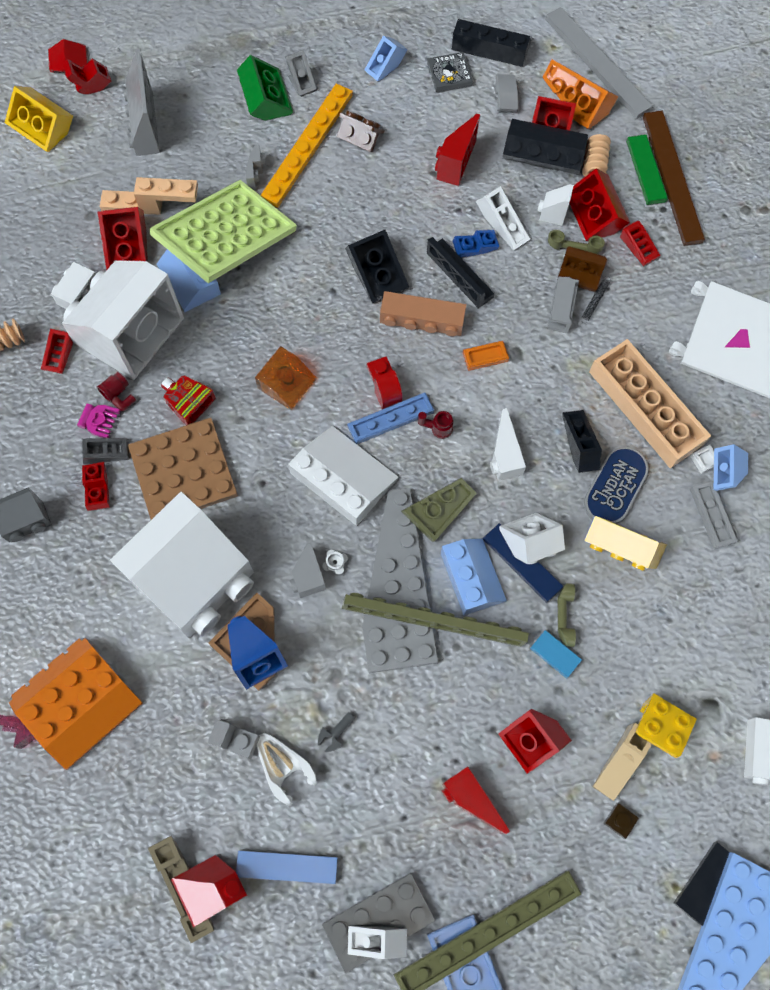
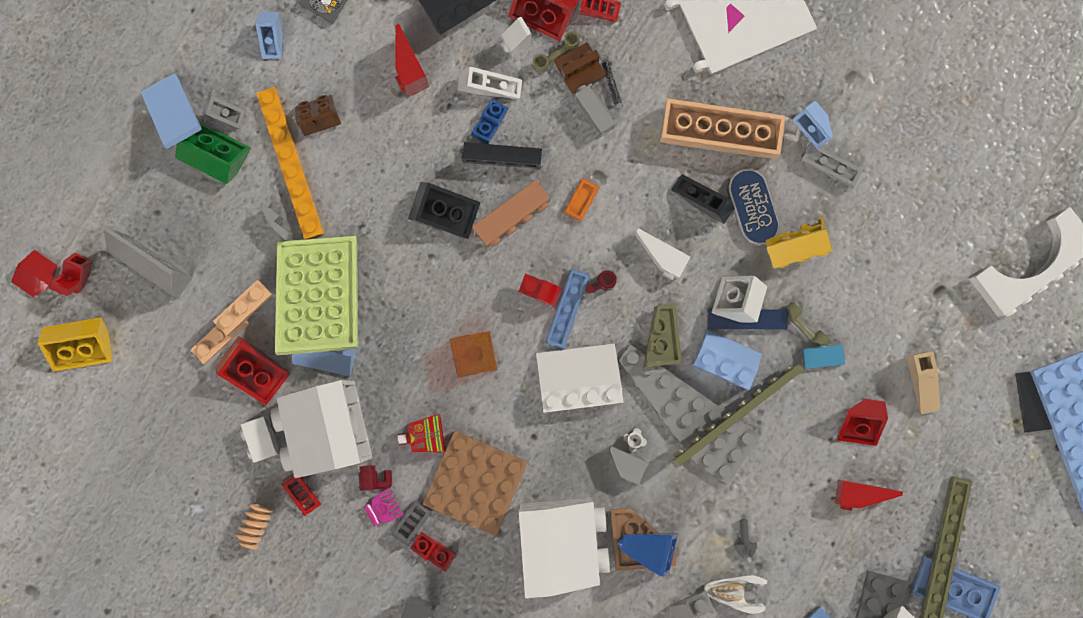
camera: 45 degrees left, 15 degrees up
(267, 40) = (171, 110): none -> light blue tile
(621, 820) = (954, 416): dark brown plate -> none
(665, 725) = (930, 338): yellow bracket -> none

